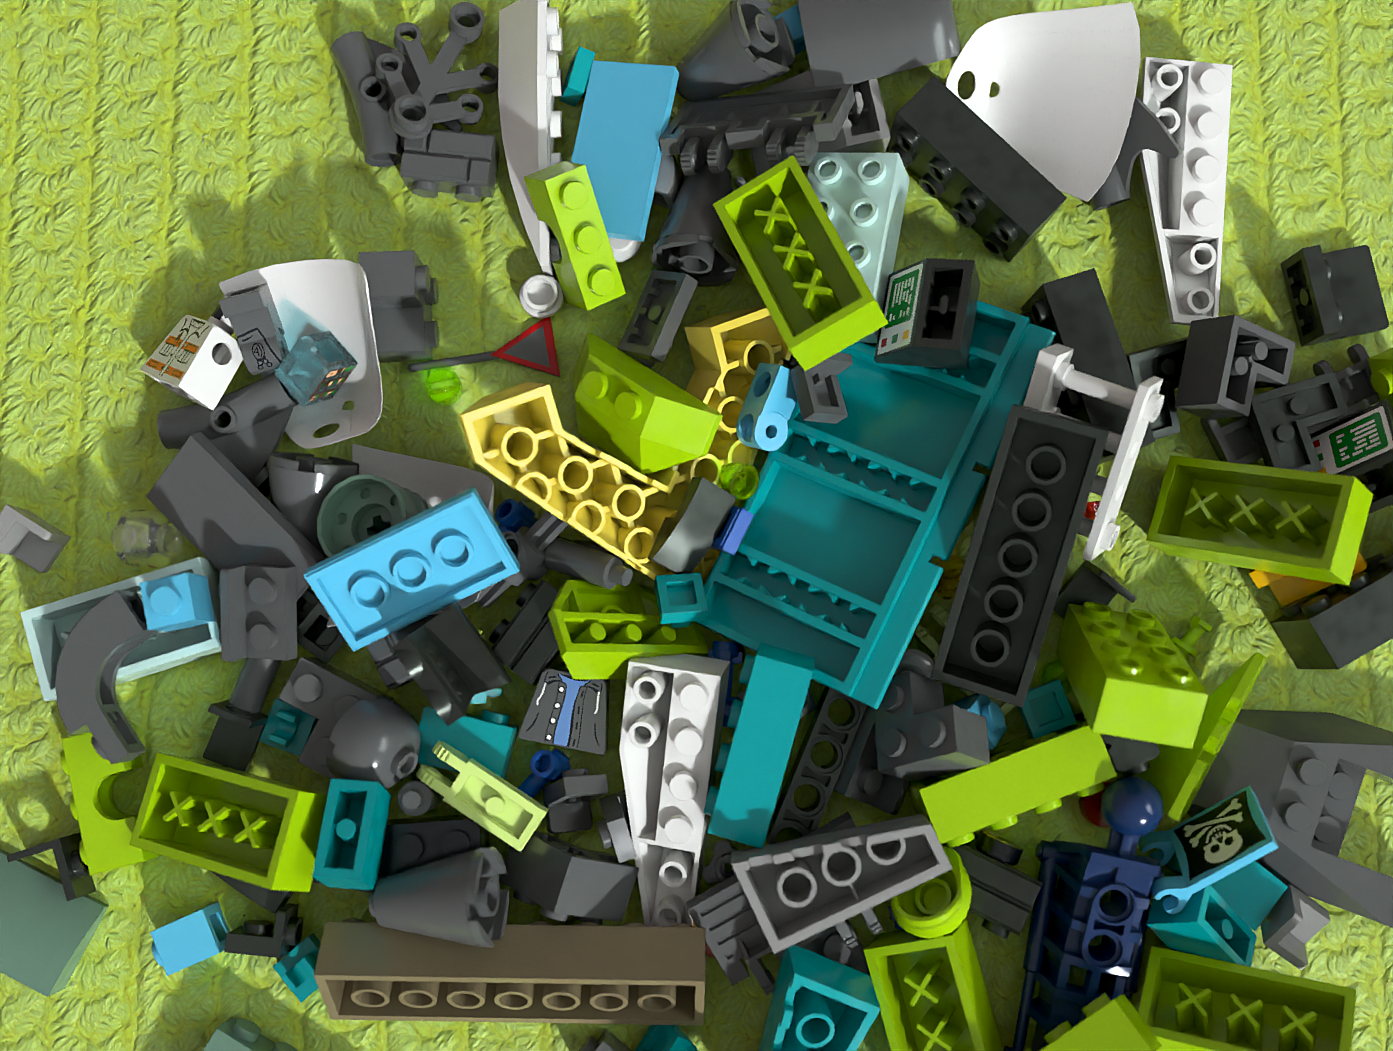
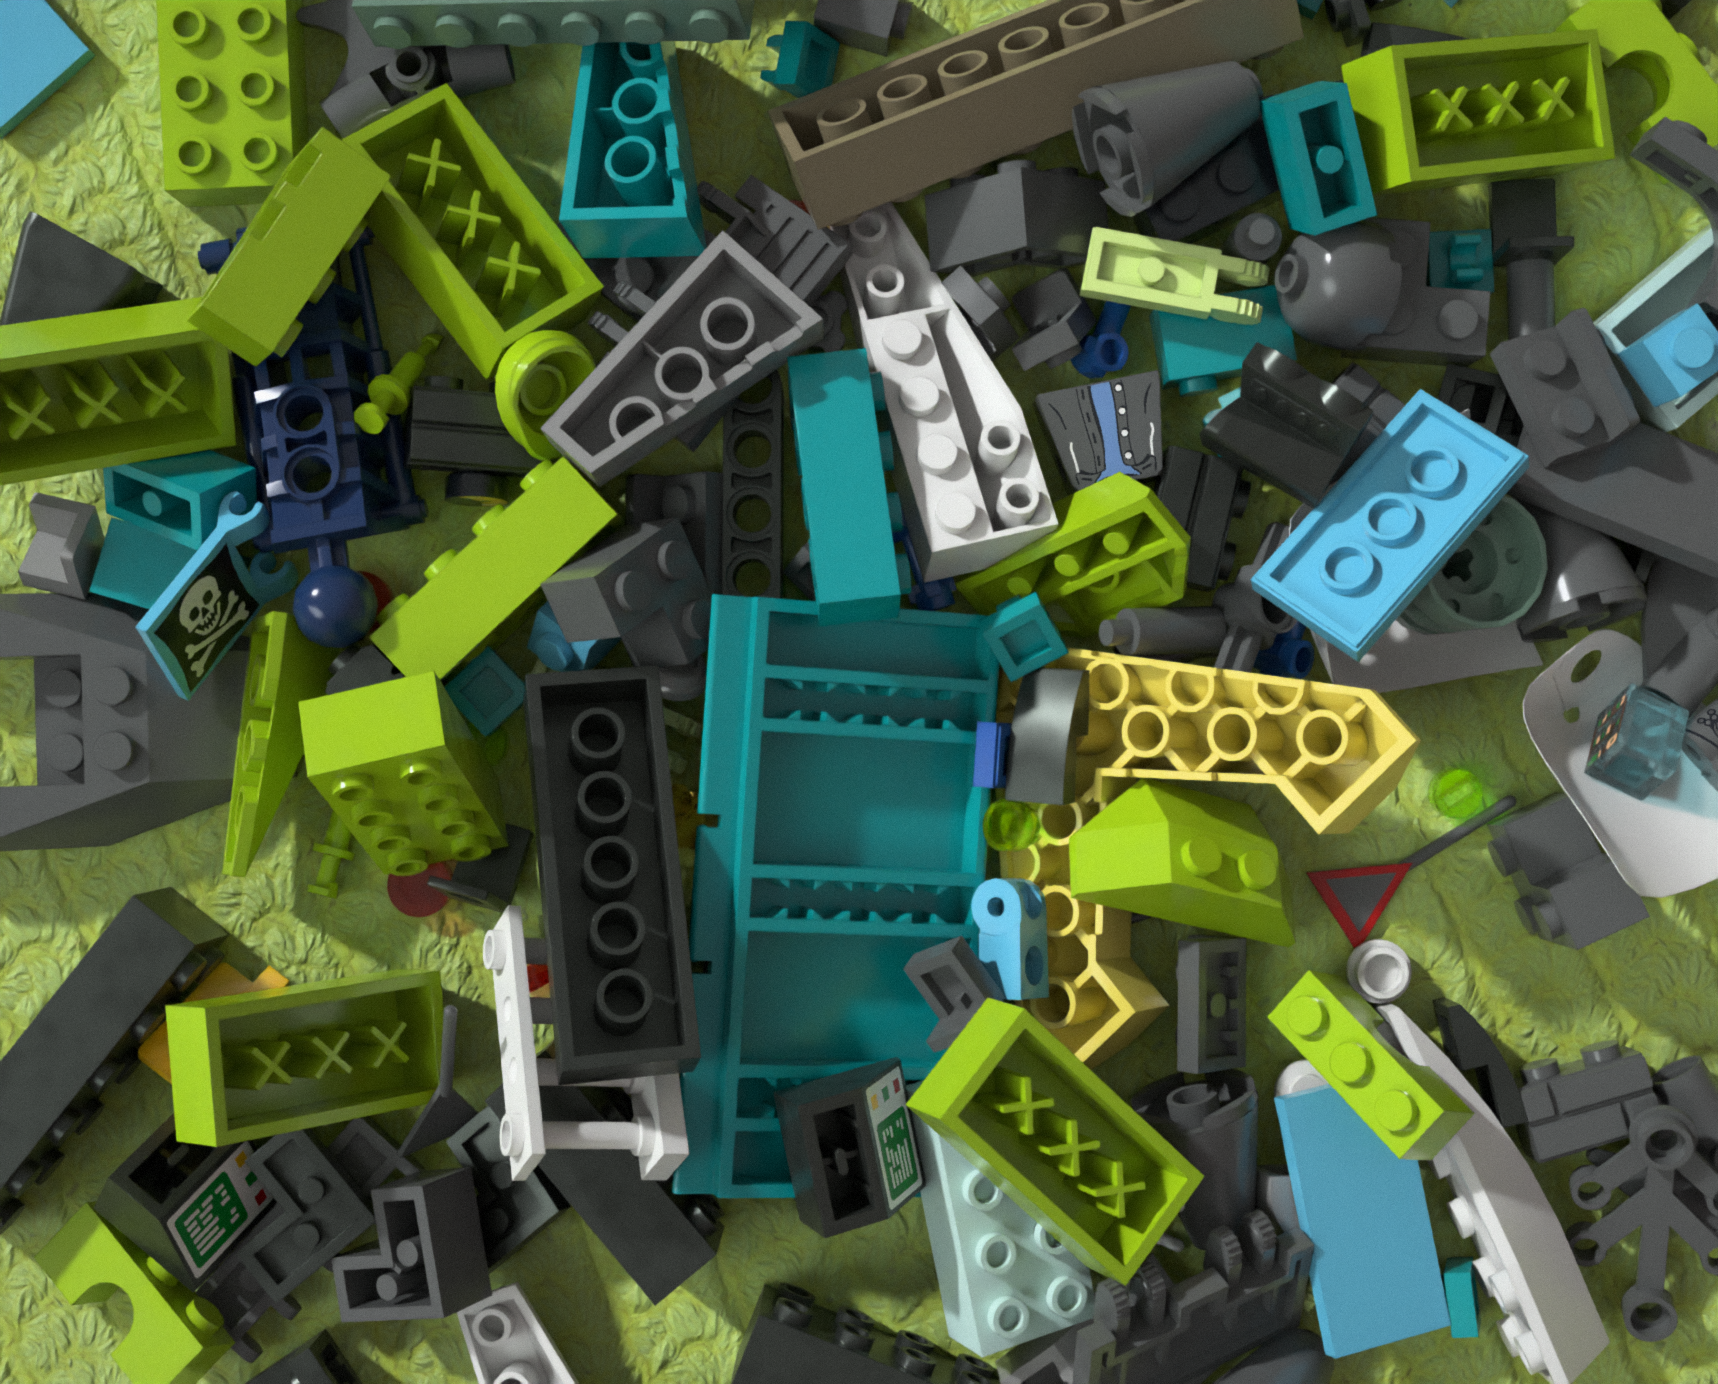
camera: 160 degrees right, 5 degrees up
(504, 222) = (1472, 1047): none -> pearl dark grey slope
(1034, 937) = (391, 392): none -> lime piece
(1146, 598) = (414, 896): none -> clear red tile
(1175, 450) = (447, 1108): none -> dark grey piece

